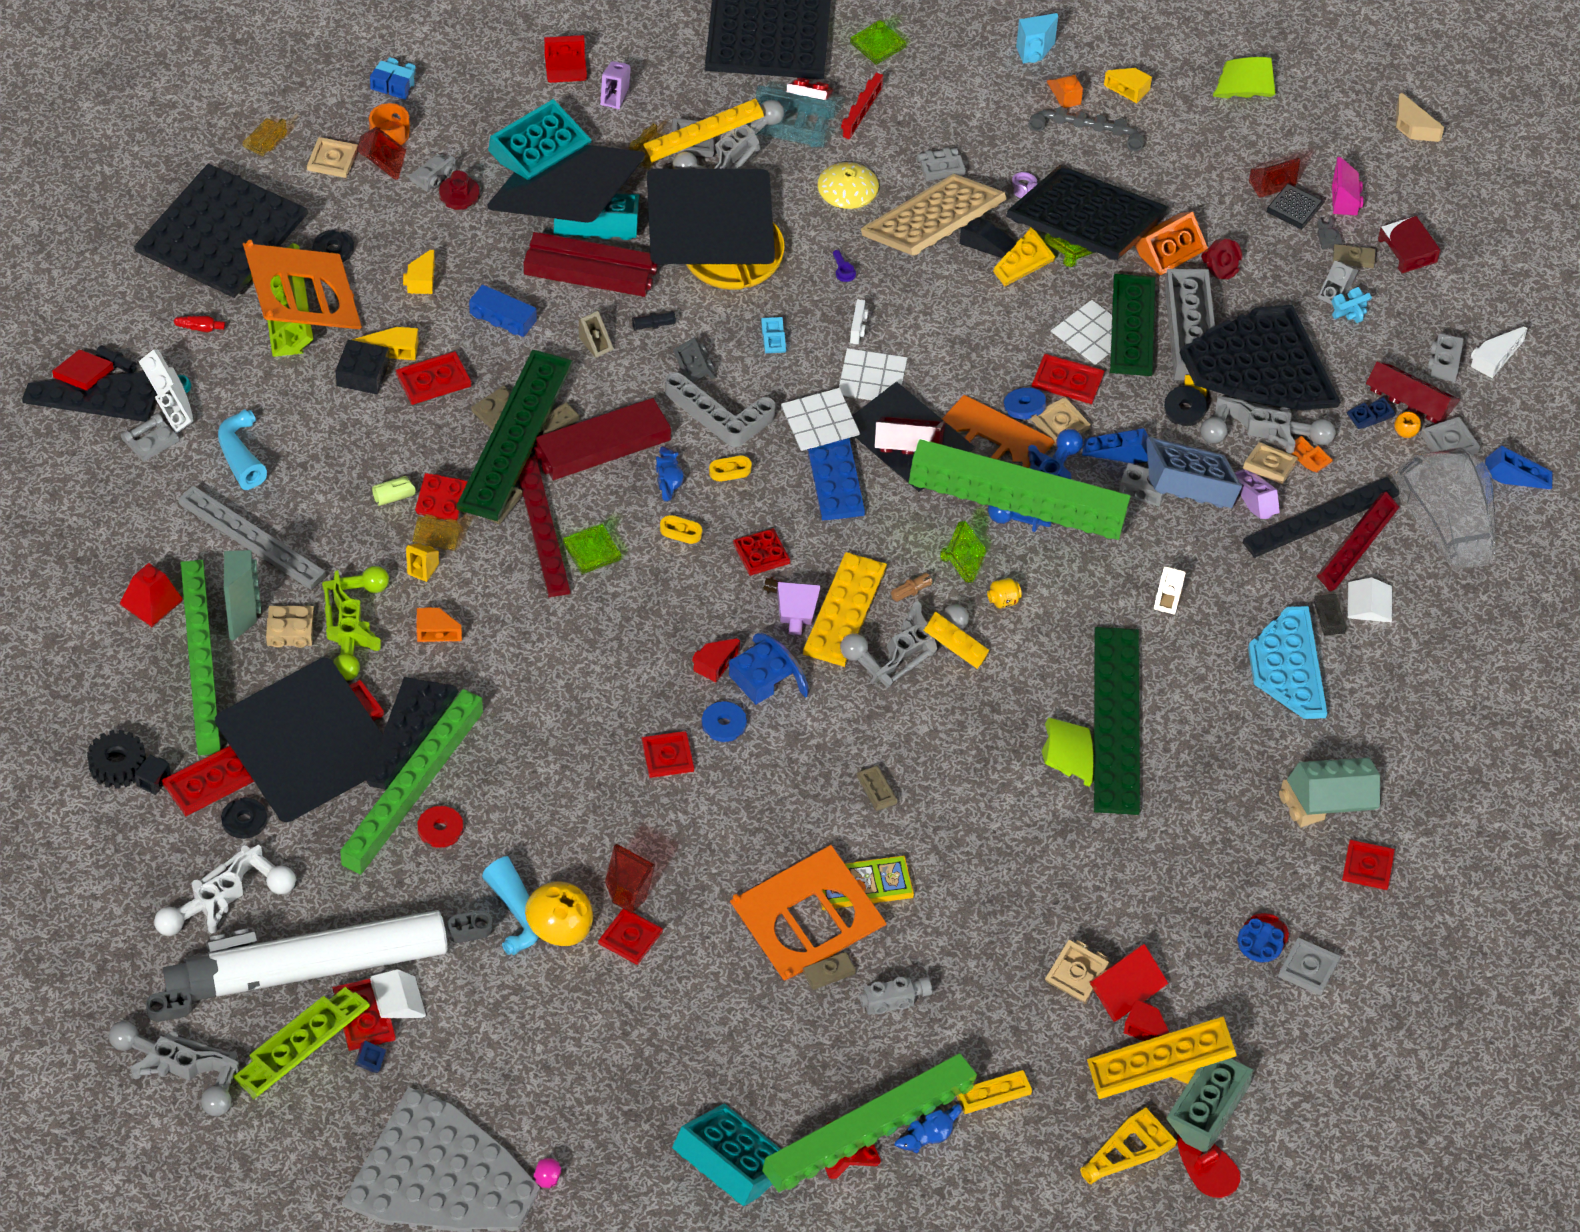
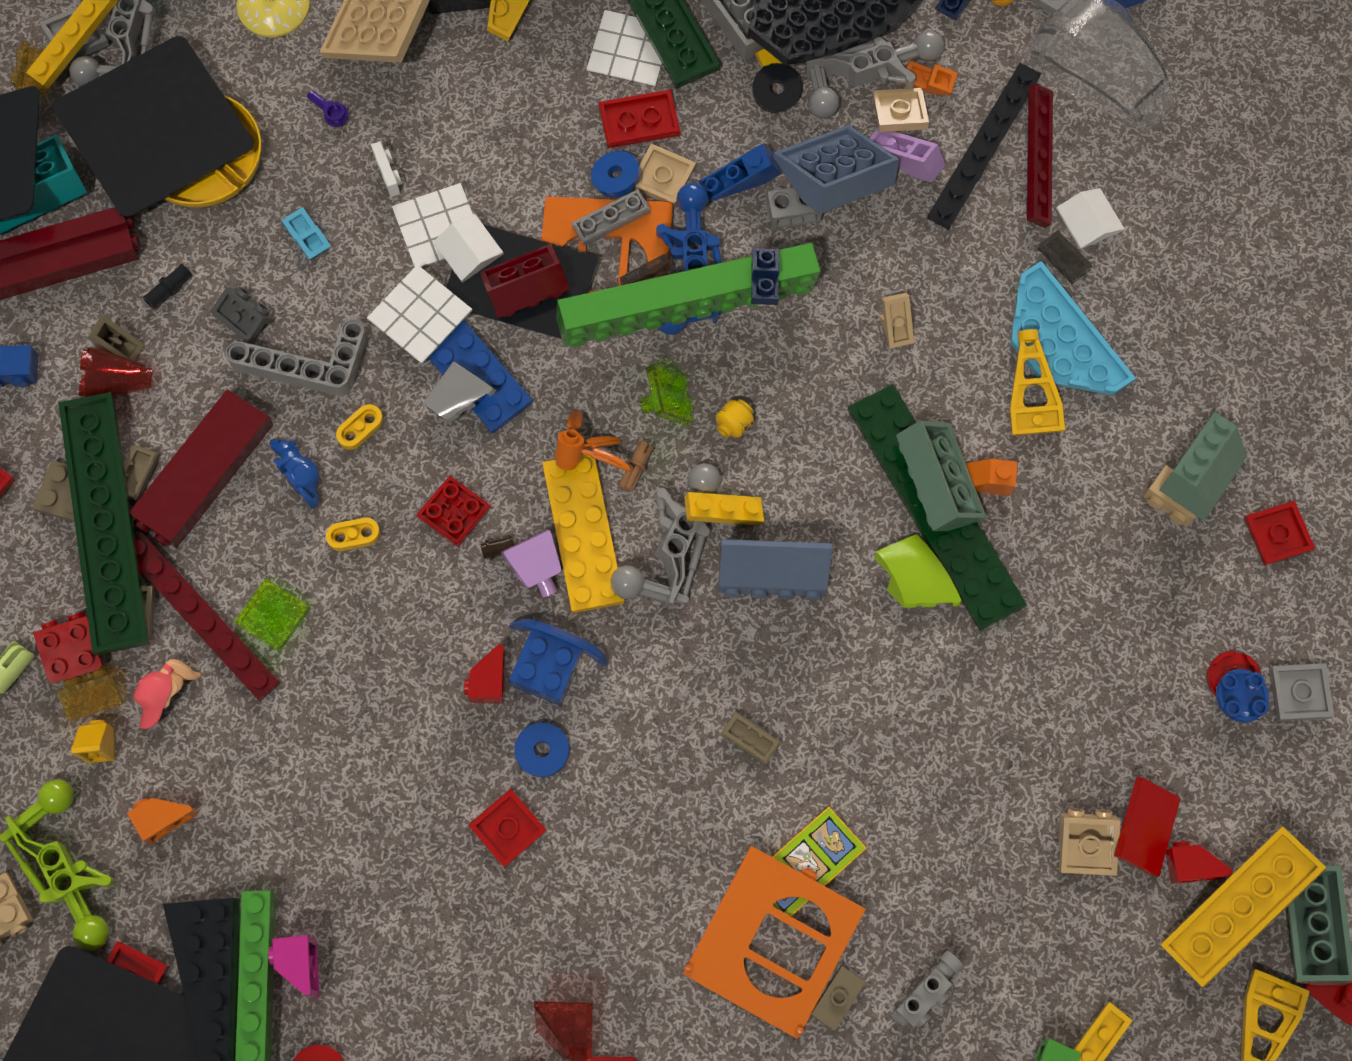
camera: 30 degrees left, 20 degrees up
(472, 748) = (297, 962): none -> dark pink slope
(486, 547) = (157, 689): none -> coral hair
(581, 351) = (111, 373): none -> clear red cone
(812, 478) = (456, 393): none -> light grey slope
(869, 546) = (571, 447): none -> orange plant
(883, 396) = (467, 247): none -> white slope
(965, 687) = (774, 569): none -> sand blue slope
(1001, 427) = (598, 224): none -> light grey tile
(1079, 497) = (764, 276): none -> dark blue slope
(1130, 695) = (940, 475): none -> sand green slope
(1170, 719) = (993, 476): none -> orange slope
(1235, 703) = (1034, 419): none -> yellow plate

